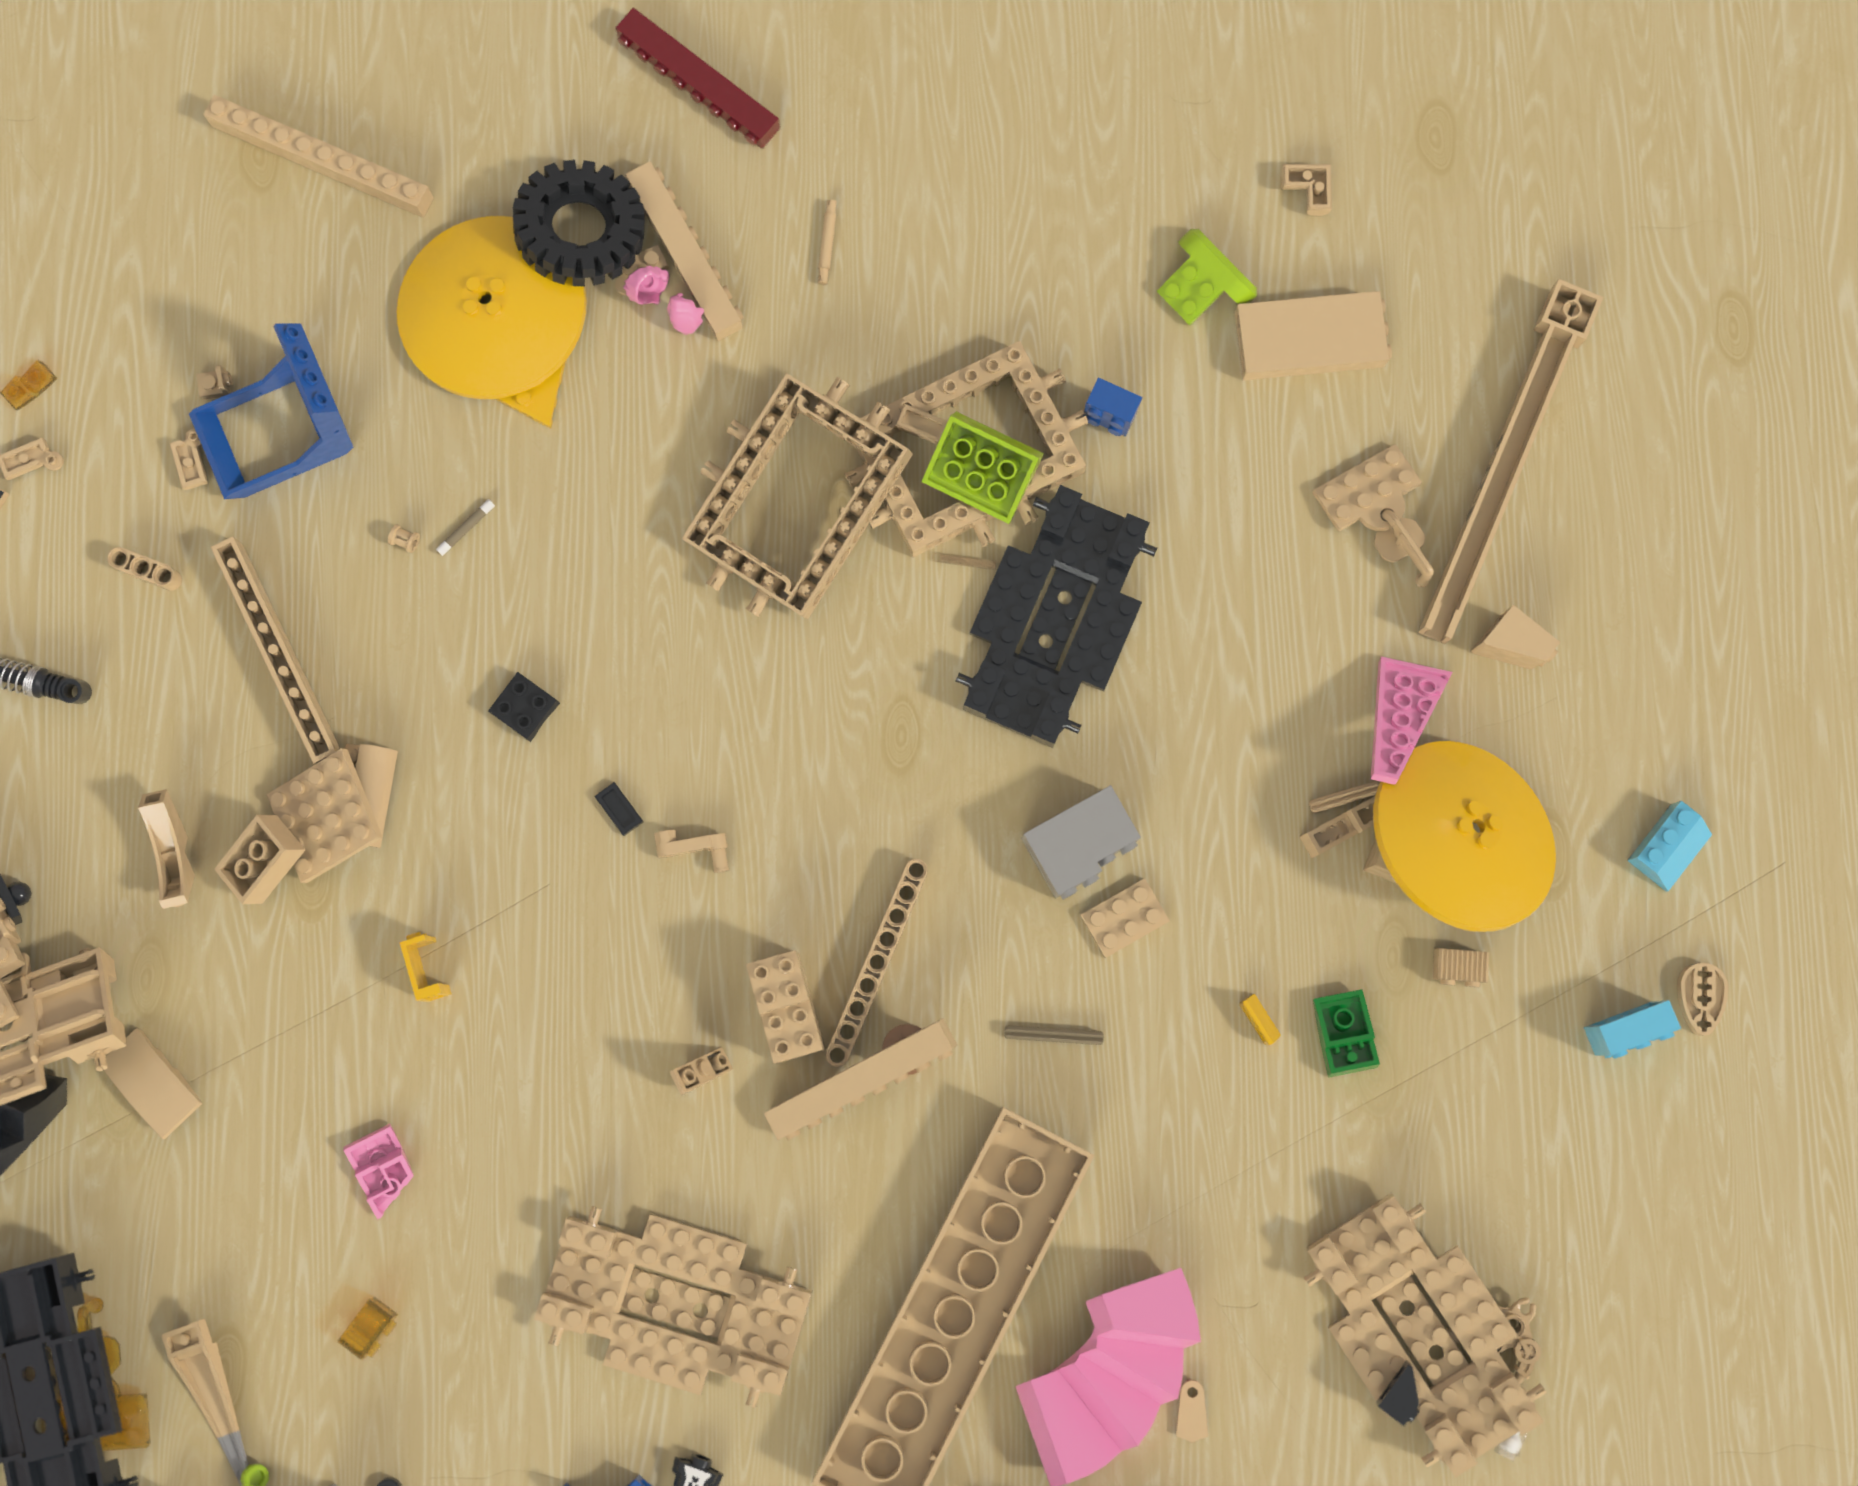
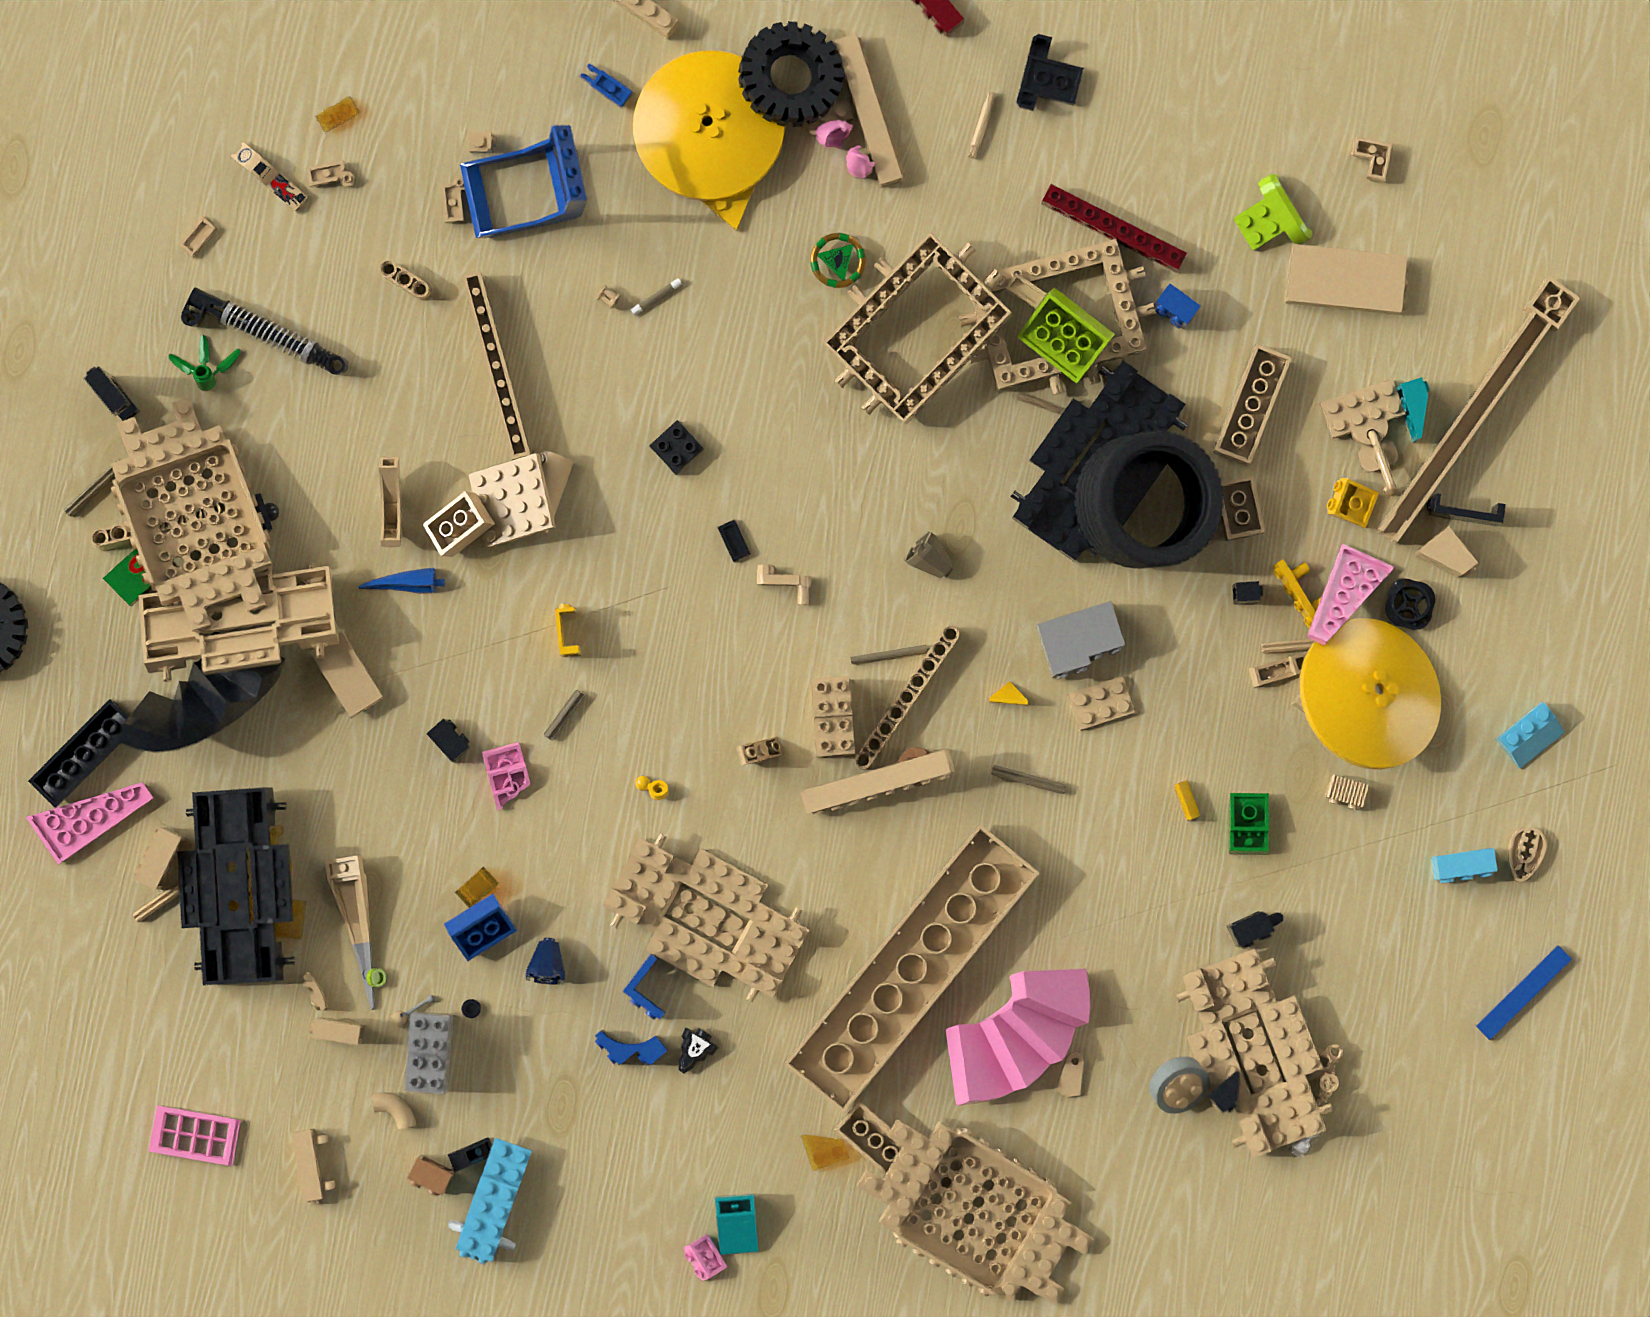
camera: 15 degrees right, 5 degrees up
(219, 944) = (411, 581): none -> blue piece
(297, 1141) = (448, 740): none -> black brick
(358, 285) = (608, 86): none -> blue hinge
(377, 1382) = (480, 927): none -> blue brick
(442, 1076) = (564, 715): none -> dark tan axle
(475, 1410) = (546, 963): none -> dark blue cone
(561, 1143) = (643, 783): none -> yellow plate
(605, 1433) = (637, 998): none -> blue bracket
(681, 436) = (837, 260): none -> piece
(843, 912) = (888, 654): none -> dark tan bar
(870, 777) = (929, 556): none -> dark tan cone
(894, 170) = (1047, 77): none -> black piece
(1006, 932) = (1008, 695): none -> yellow slope
(1009, 328) = (1113, 228): none -> dark red brick
(1186, 610) = (1201, 500): none -> black tyre
(1231, 508) = (1252, 404): none -> tan brick
(1244, 638) = (1241, 509): none -> tan brick
(1278, 740) = (1247, 592): none -> black brick
(1333, 724) = (1293, 589): none -> yellow plate
(1336, 1398) = (1179, 1085): none -> light grey wheel
(1381, 602) = (1352, 502): none -> yellow plate
(1384, 1168) = (1253, 927): none -> black hinge
(1431, 463) = (1414, 402): none -> teal slope
(1499, 696) = (1419, 621): none -> black piece
(1563, 583) = (1494, 518): none -> black panel
(1743, 1177) = (1523, 992): none -> blue tile

